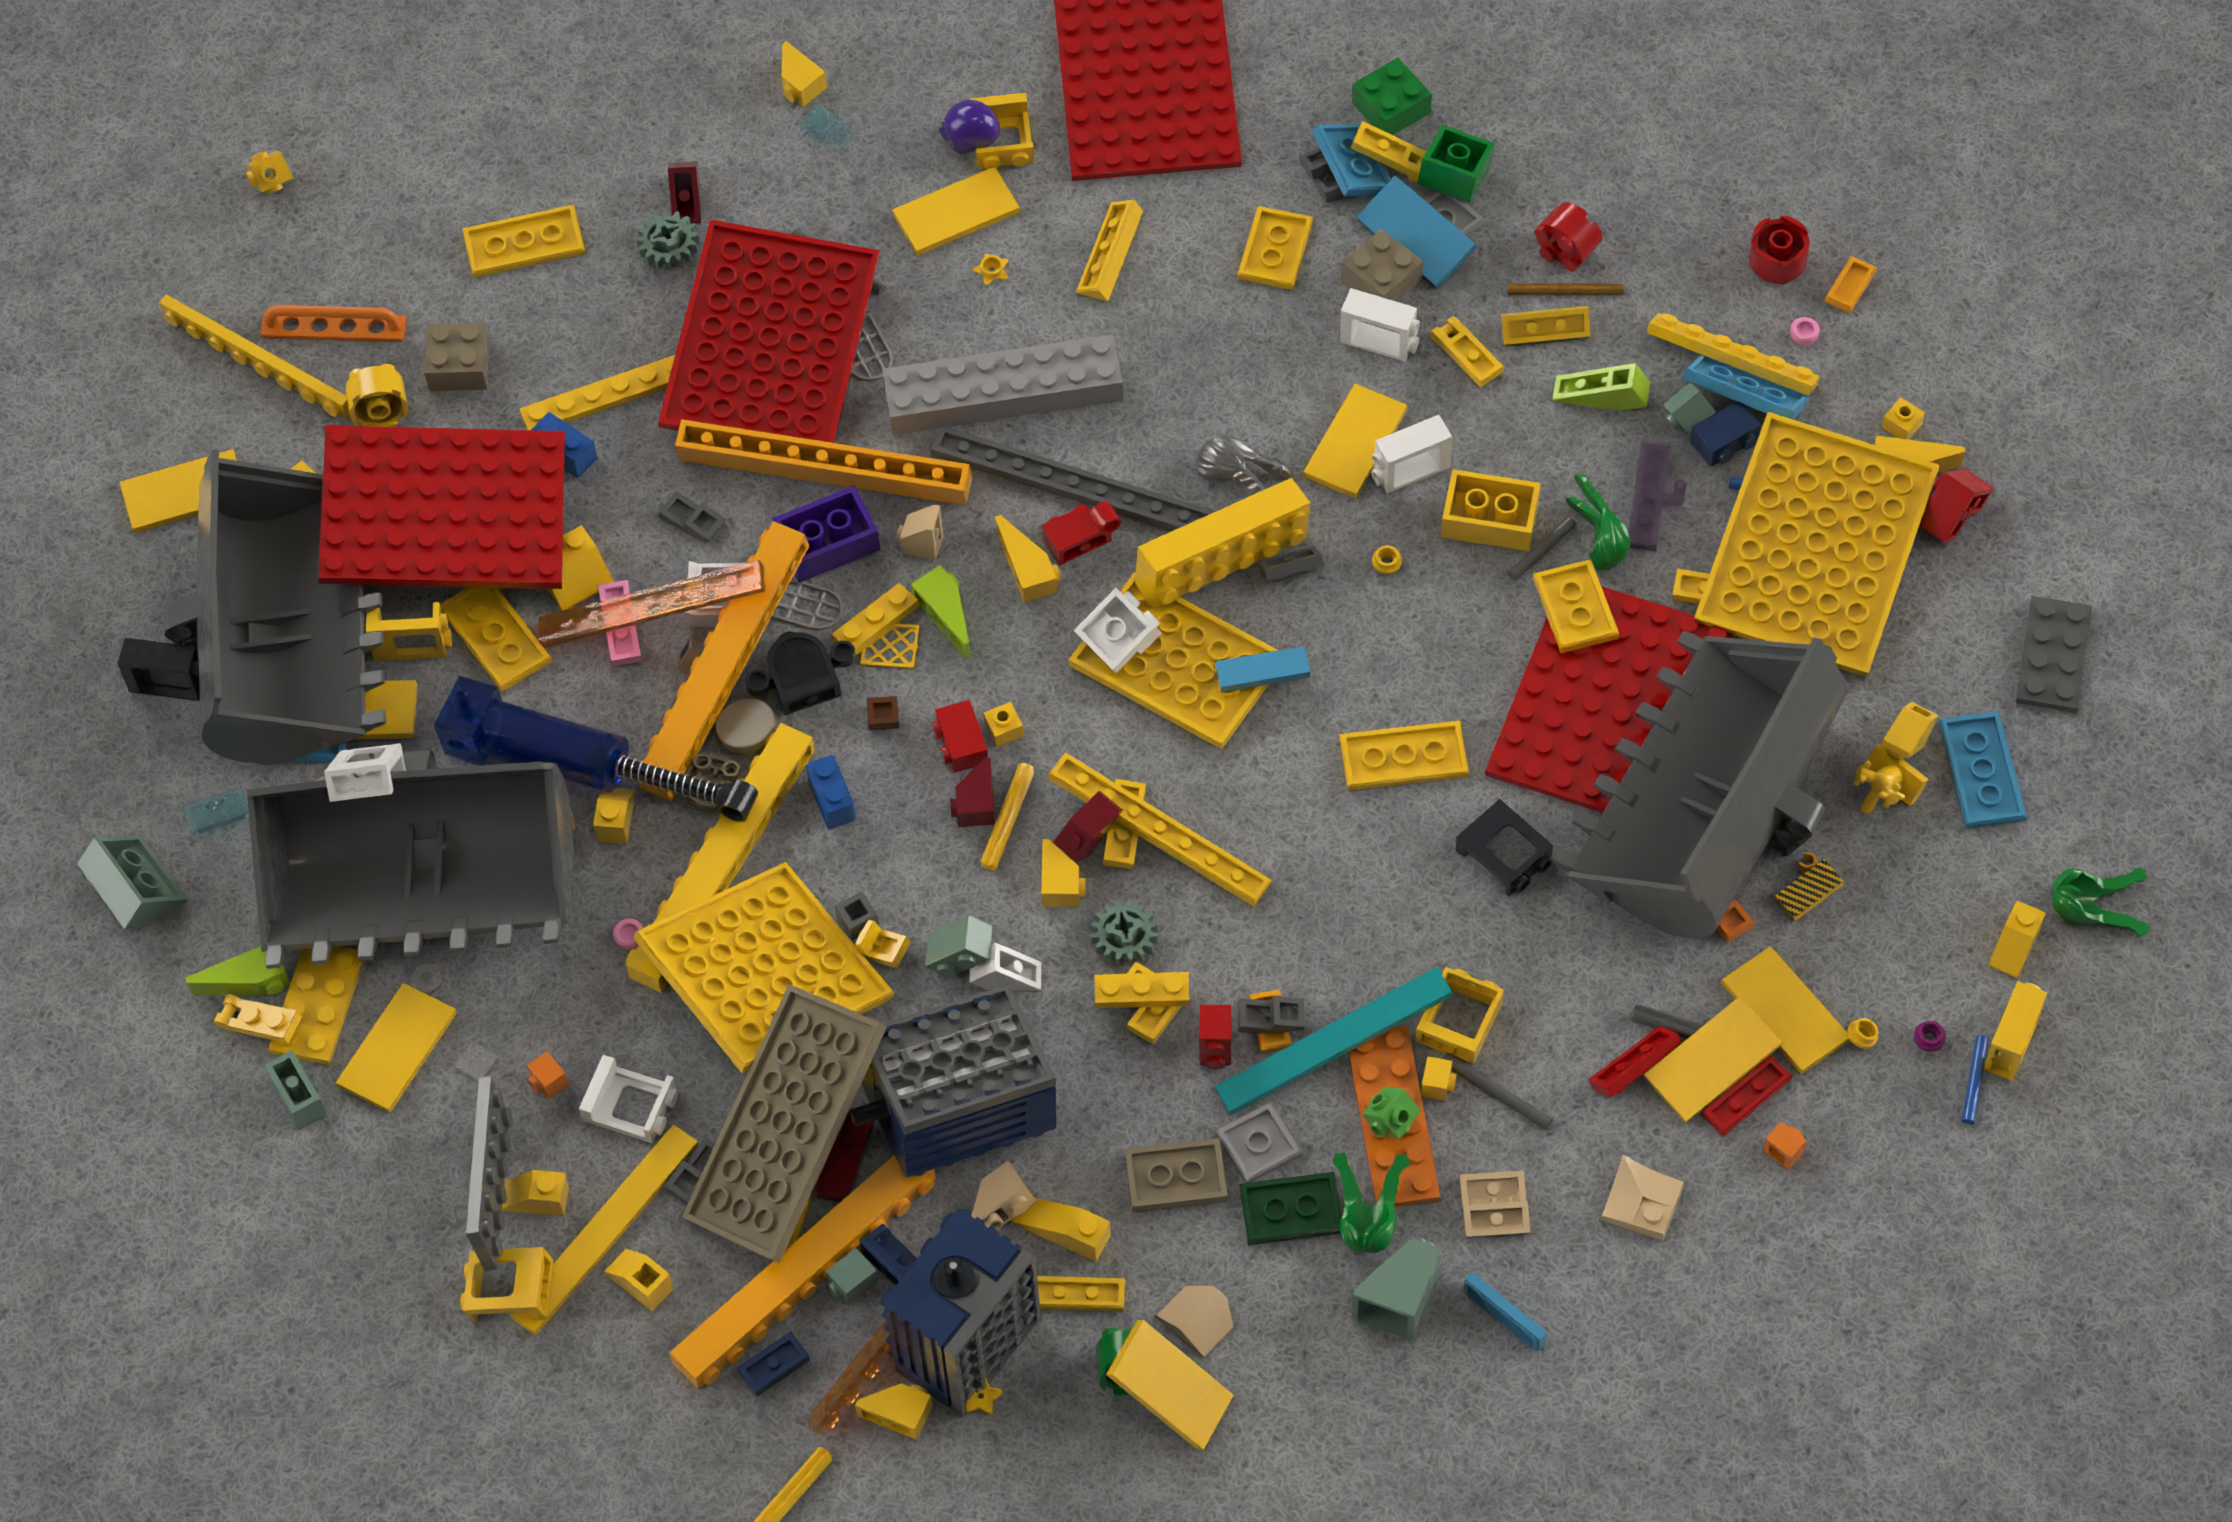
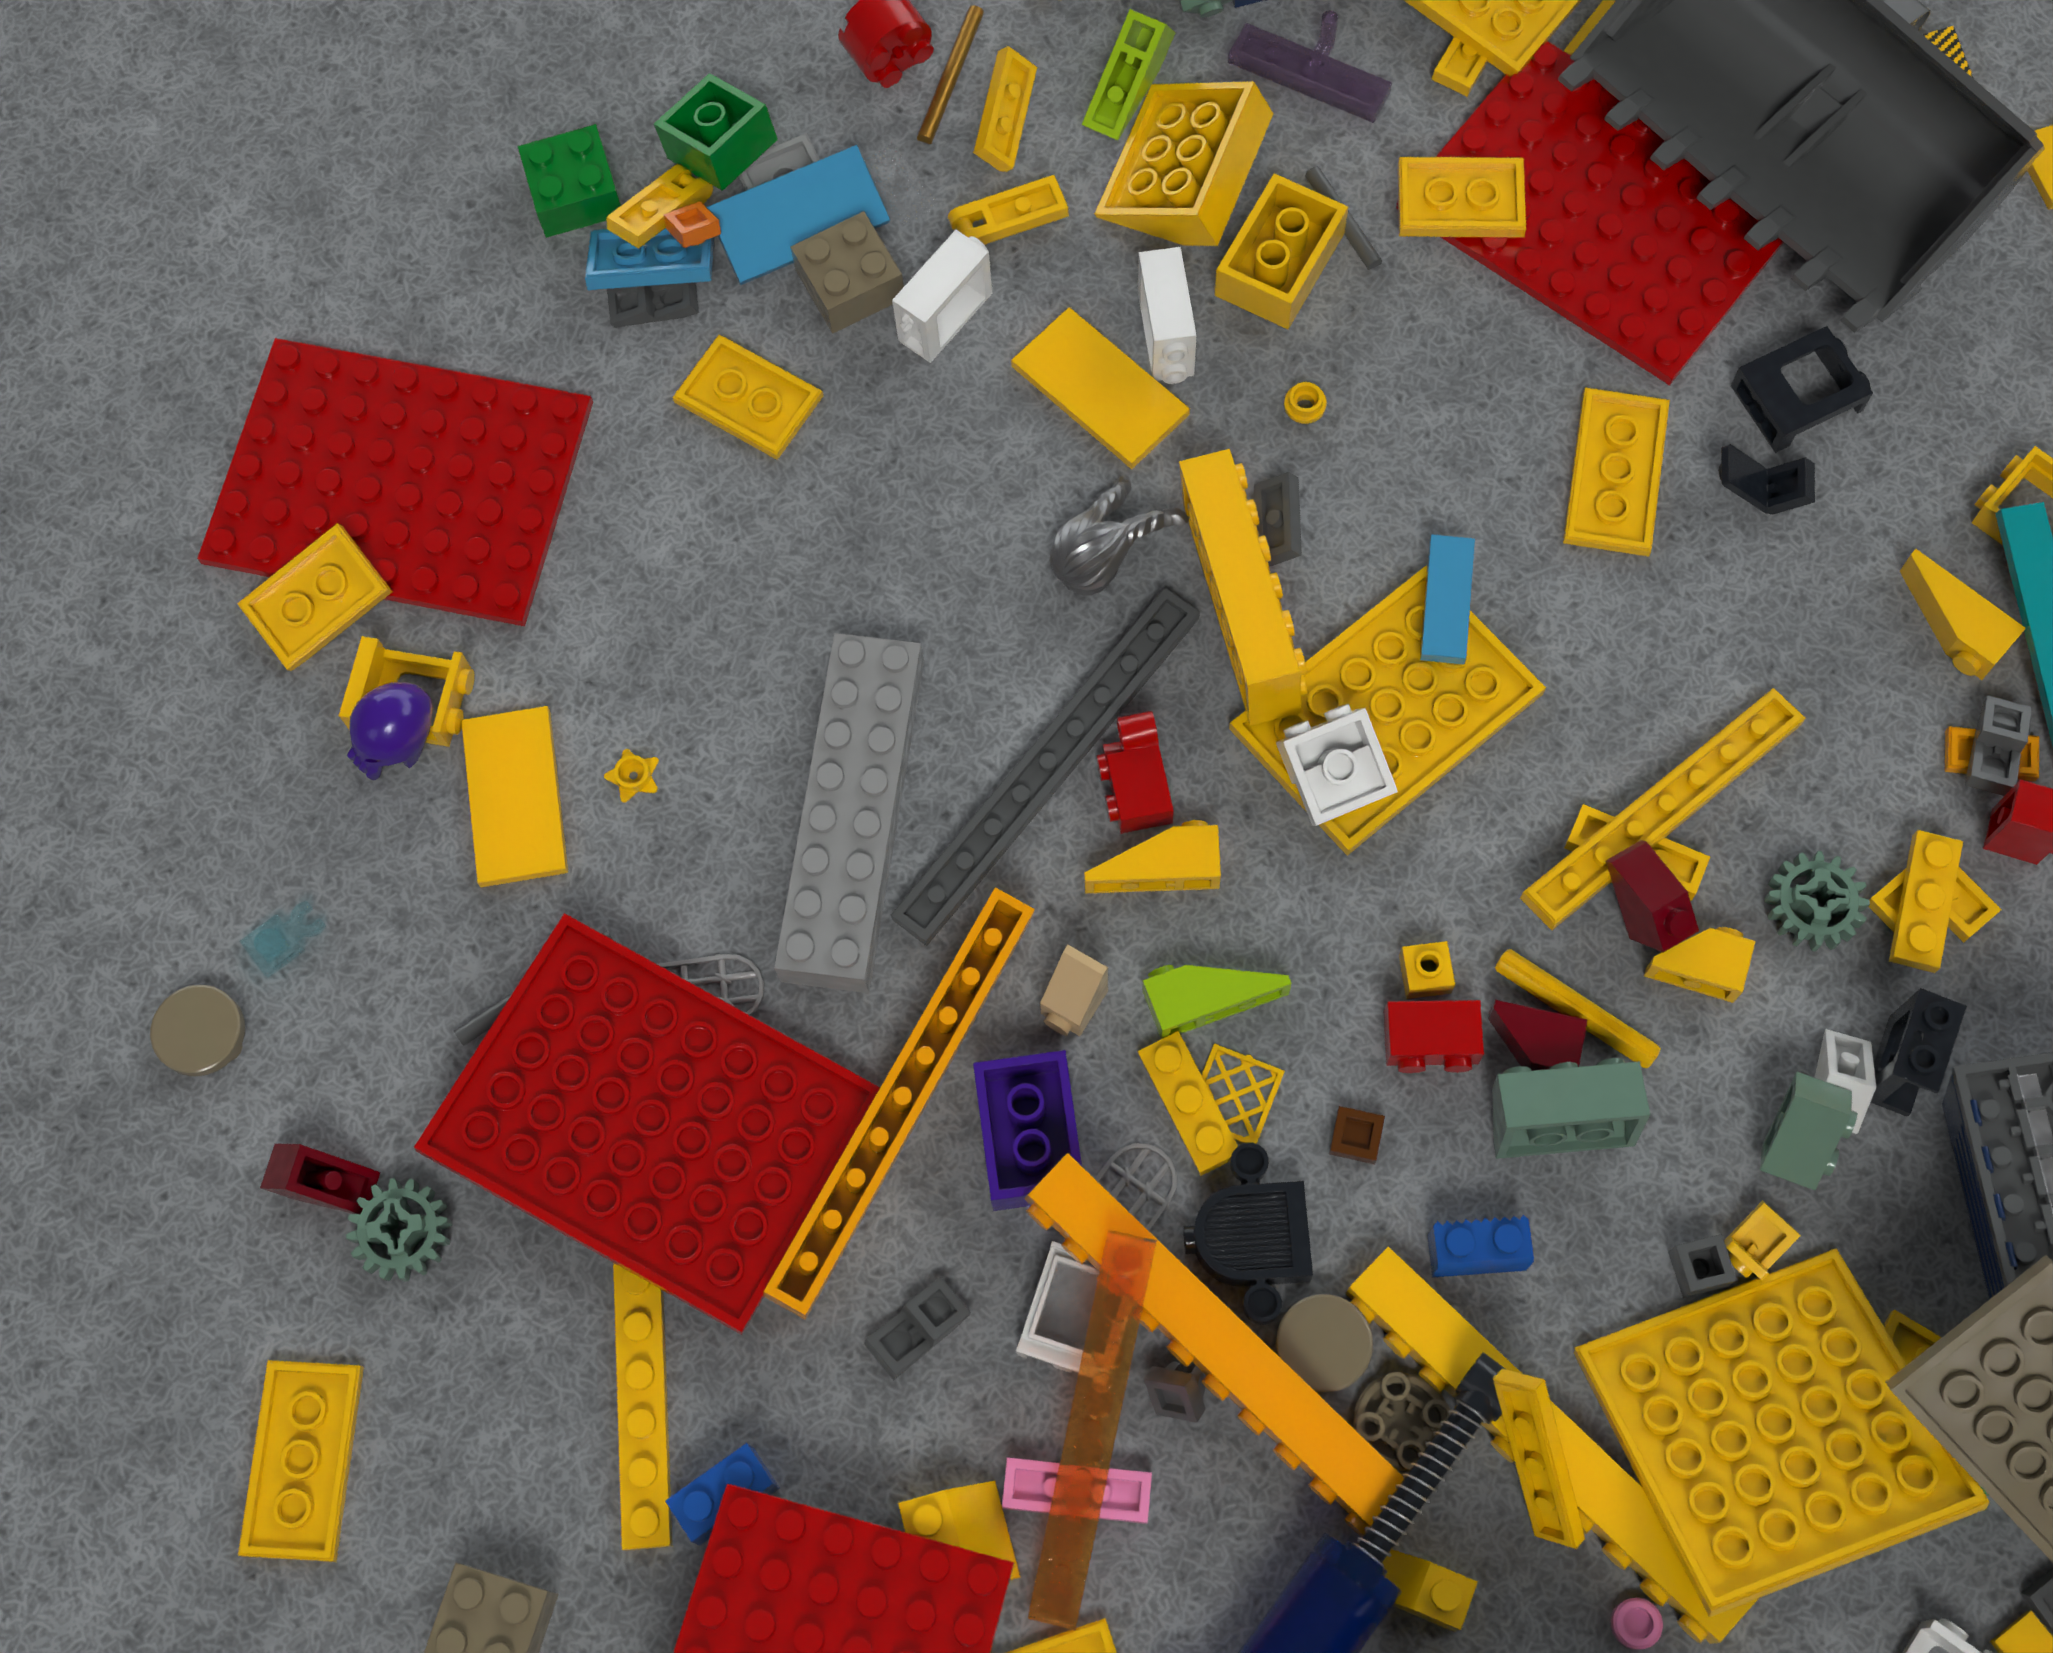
camera: 70 degrees left, 10 degrees up
(701, 834) = (1539, 1457): none -> yellow tile
(754, 102) = (197, 1030): none -> dark tan tile
(800, 76) = (179, 950): yellow slope -> none
(930, 811) = (1568, 1108): none -> sand green slope
(1040, 985) = (1921, 1043): none -> black window
(1047, 62) = (314, 597): none -> yellow tile
(1112, 249) = (668, 606): yellow slope -> none
(1358, 978) = (1962, 620): none -> yellow slope
(1378, 171) = (692, 224): none -> orange plate
(1419, 832) = (1768, 489): none -> black bracket
(1545, 441) = (1187, 160): none -> yellow slope
(1611, 535) = (1368, 130): green hair -> none

